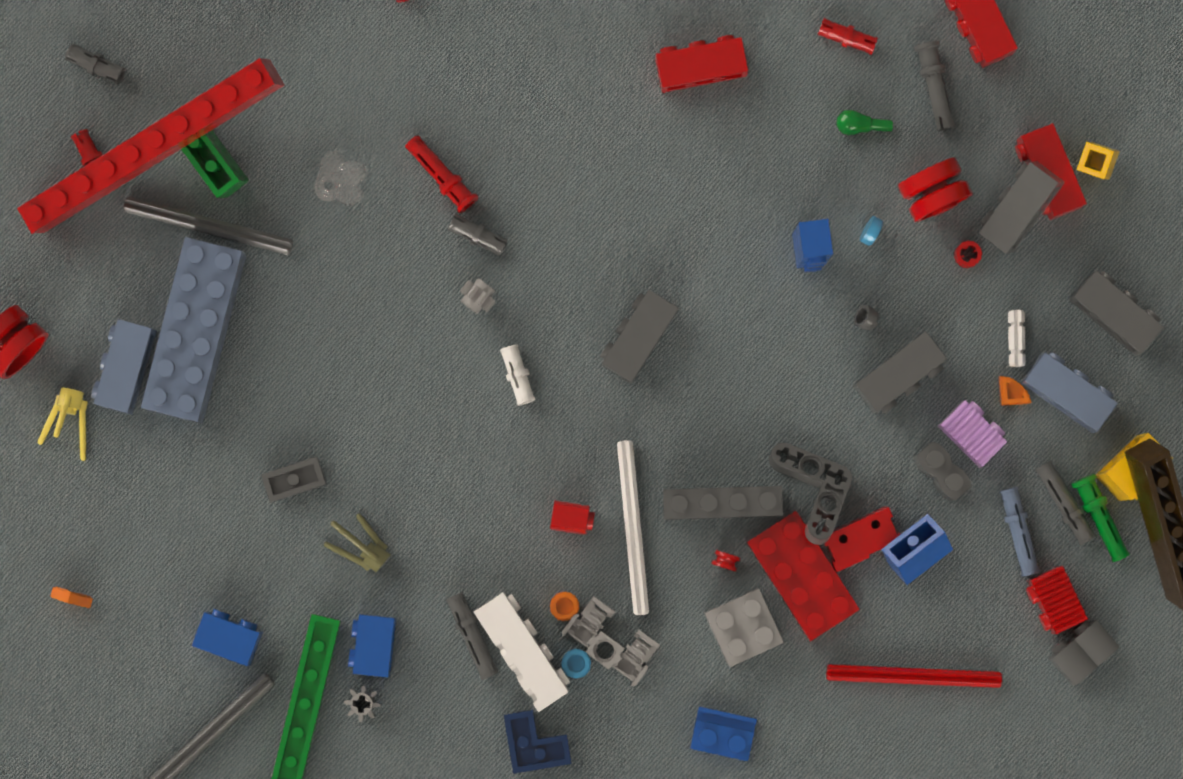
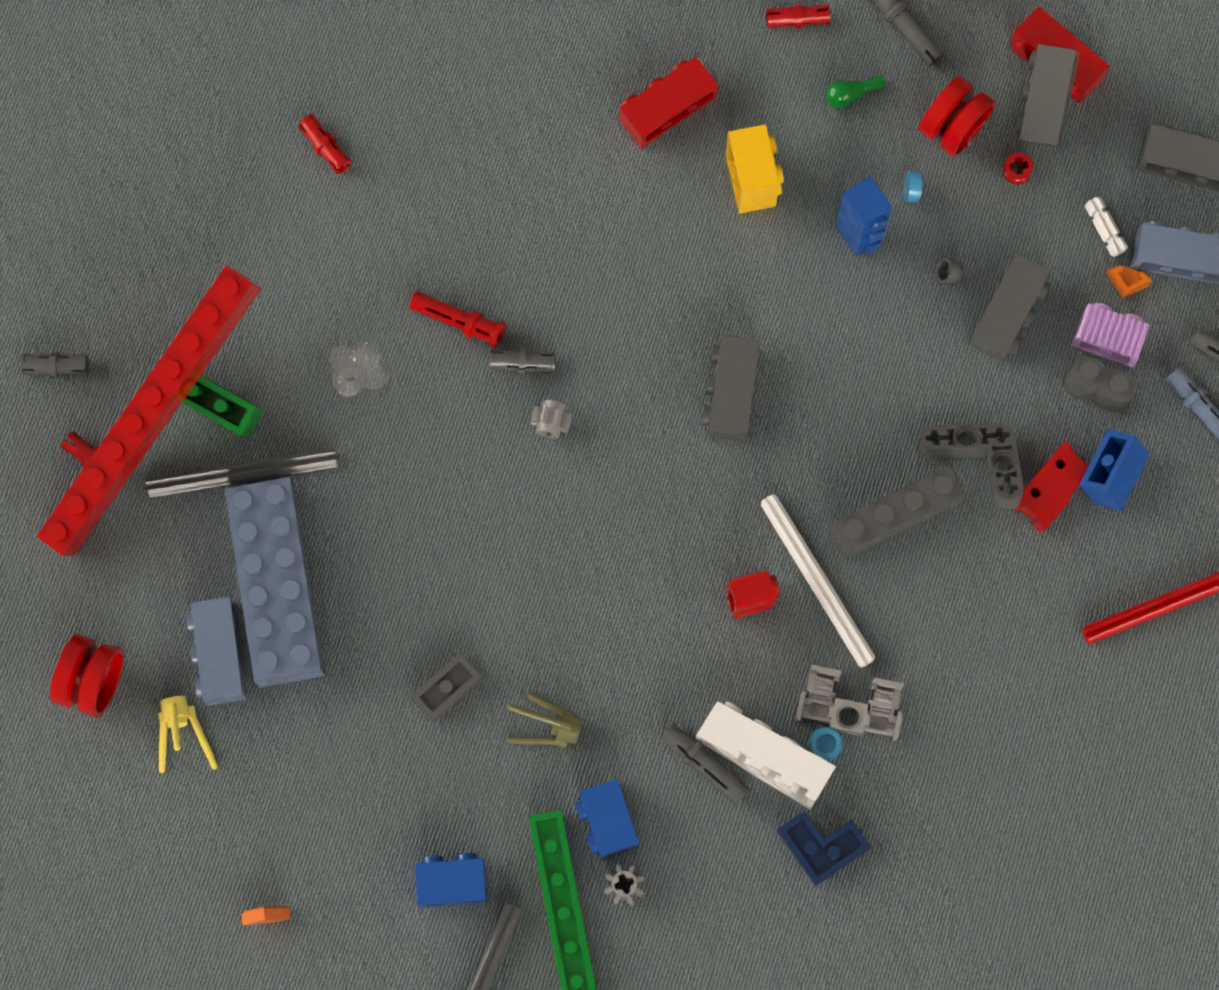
camera: 25 degrees left, 10 degrees down
(517, 375) = (627, 480): white pin -> none
(564, 606) = (785, 691): orange tile -> none
(723, 733) = (1010, 747): blue plate -> none
(726, 560) = (928, 570): red bush -> none
(742, 157) = (753, 168): none -> yellow brick
(743, 627) = (979, 627): light grey brick -> none
(802, 576) = (1012, 551): red plate -> none
(1098, 160) = (1099, 22): yellow brick -> none

